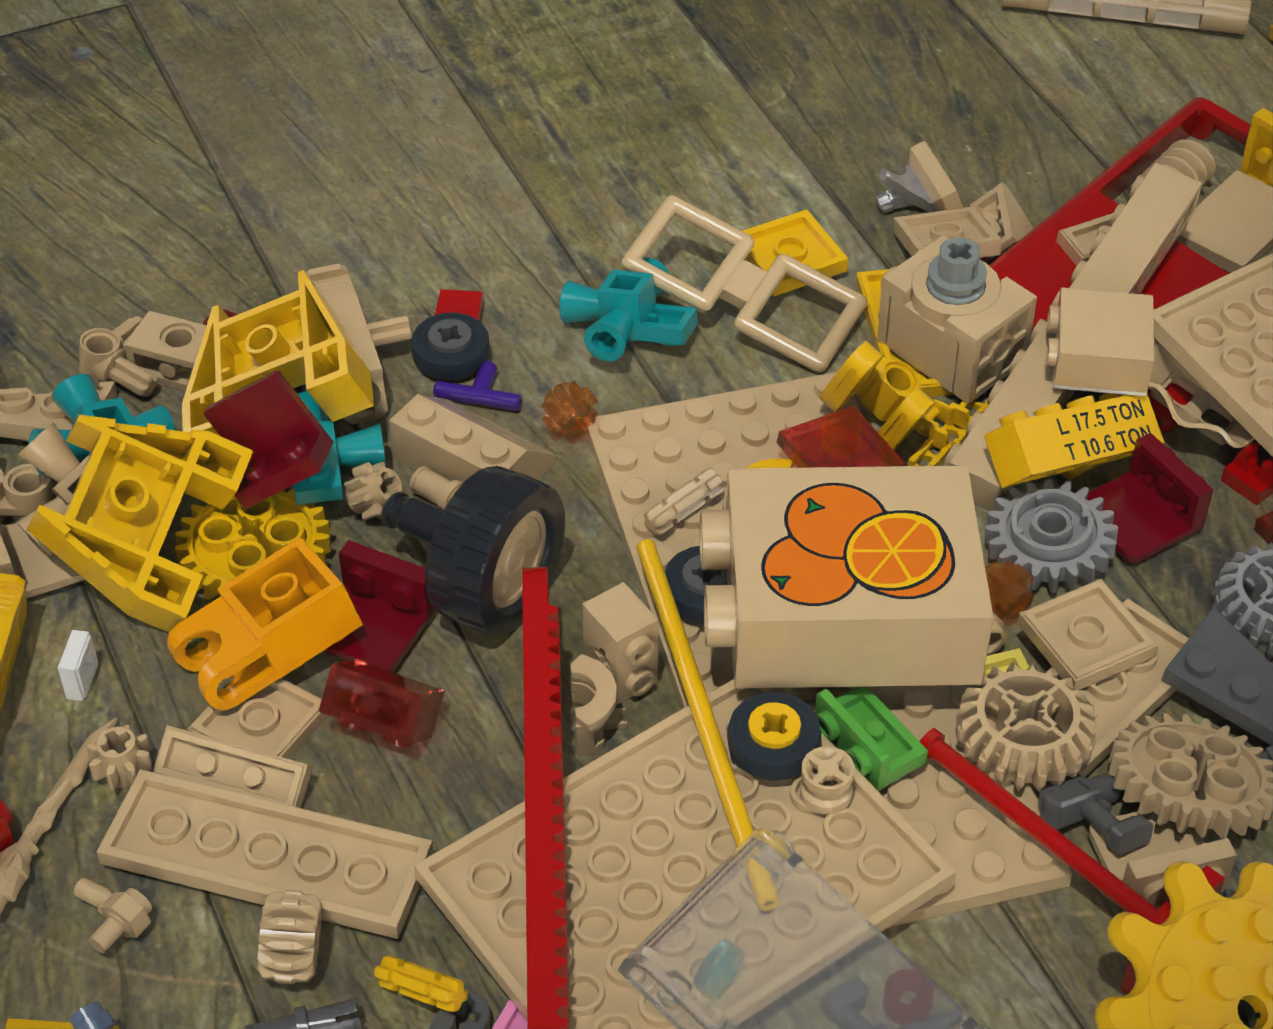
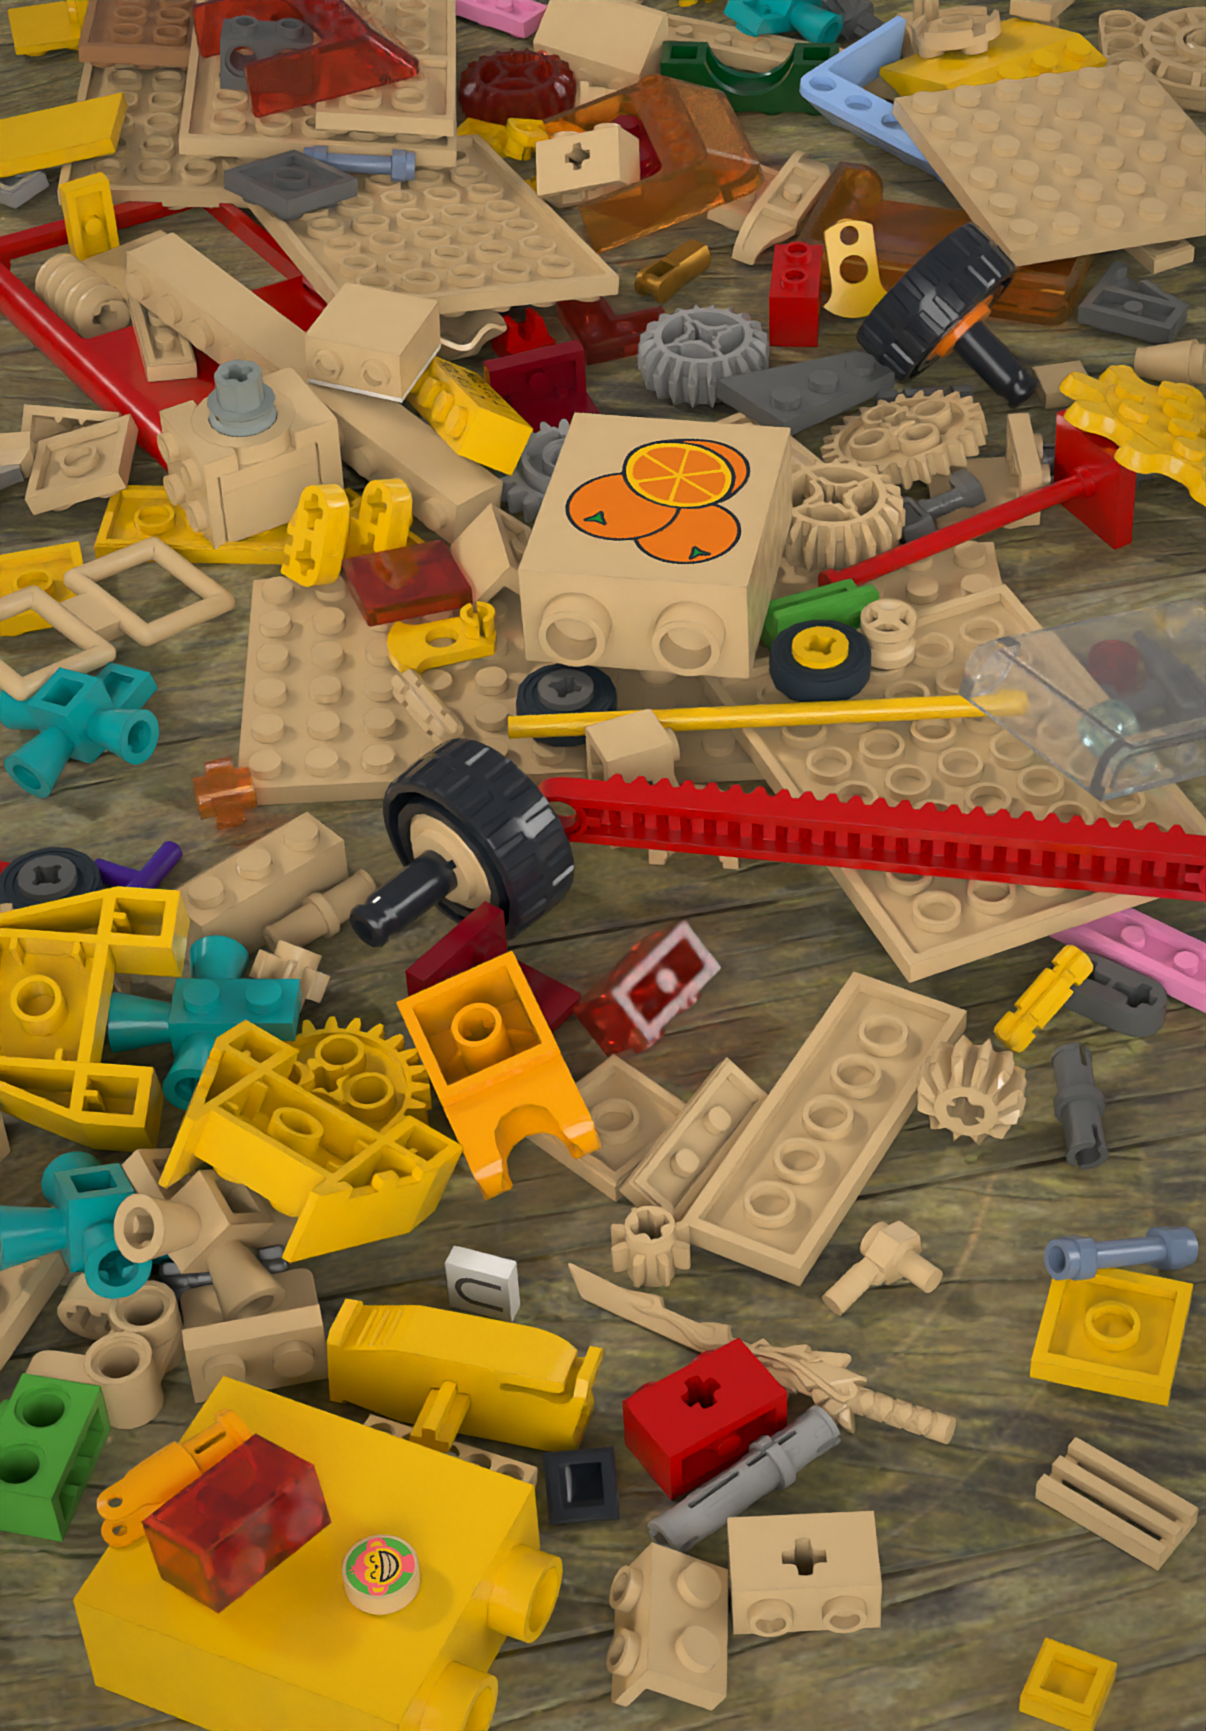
camera: 75 degrees left, 5 degrees down
(278, 429) = (227, 982): dark red bracket -> none

